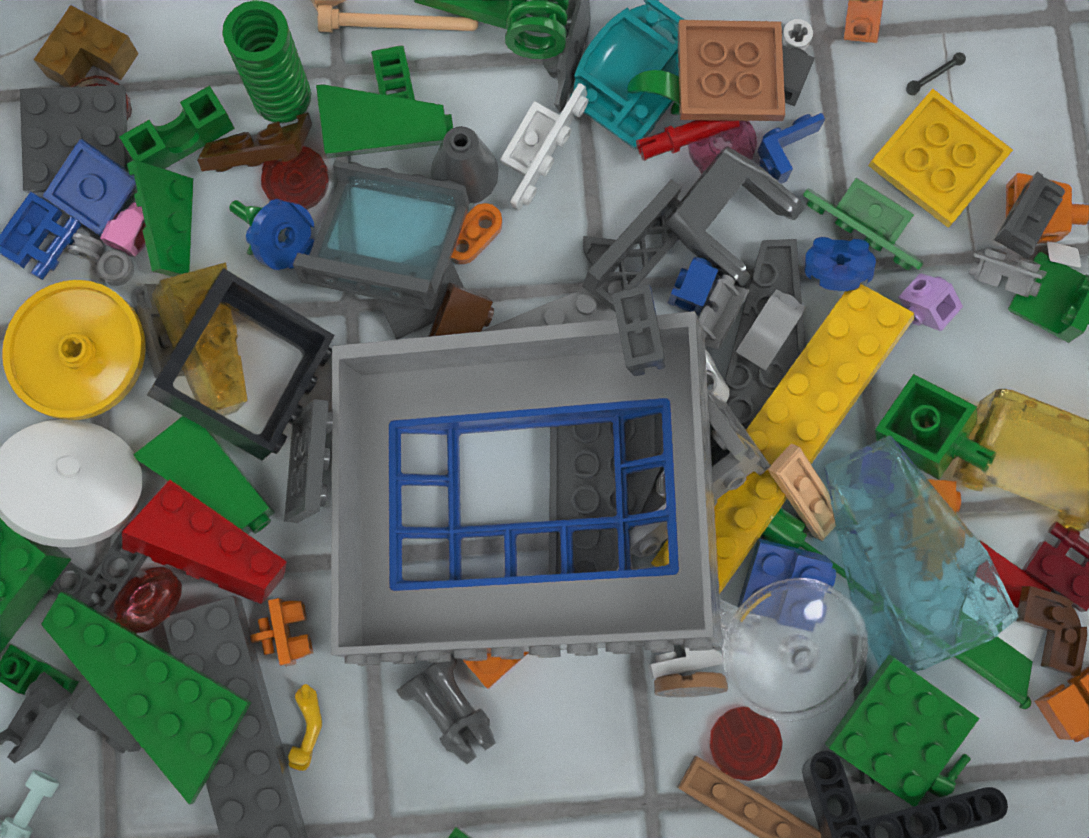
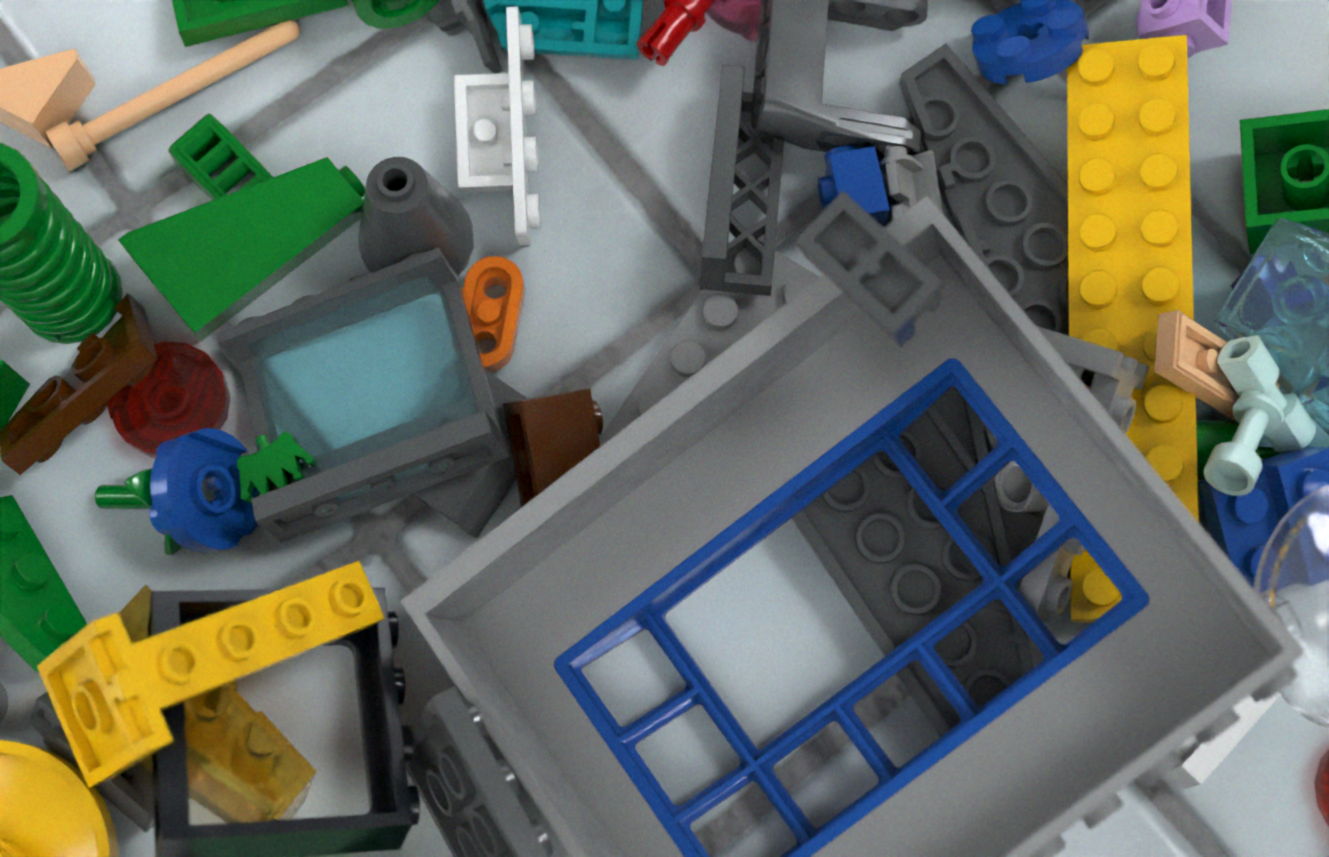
camera: 30 degrees left, 5 degrees down
(177, 304) = (115, 690): none -> yellow bracket
(320, 242) = (272, 464): none -> green piece
(595, 247) = (682, 229): dark grey tile -> none
(690, 686) = (1257, 757): medium nougat tile -> none
(771, 329) = (1009, 180): light grey brick -> none
(812, 522) = (1259, 411): none -> light aqua bar

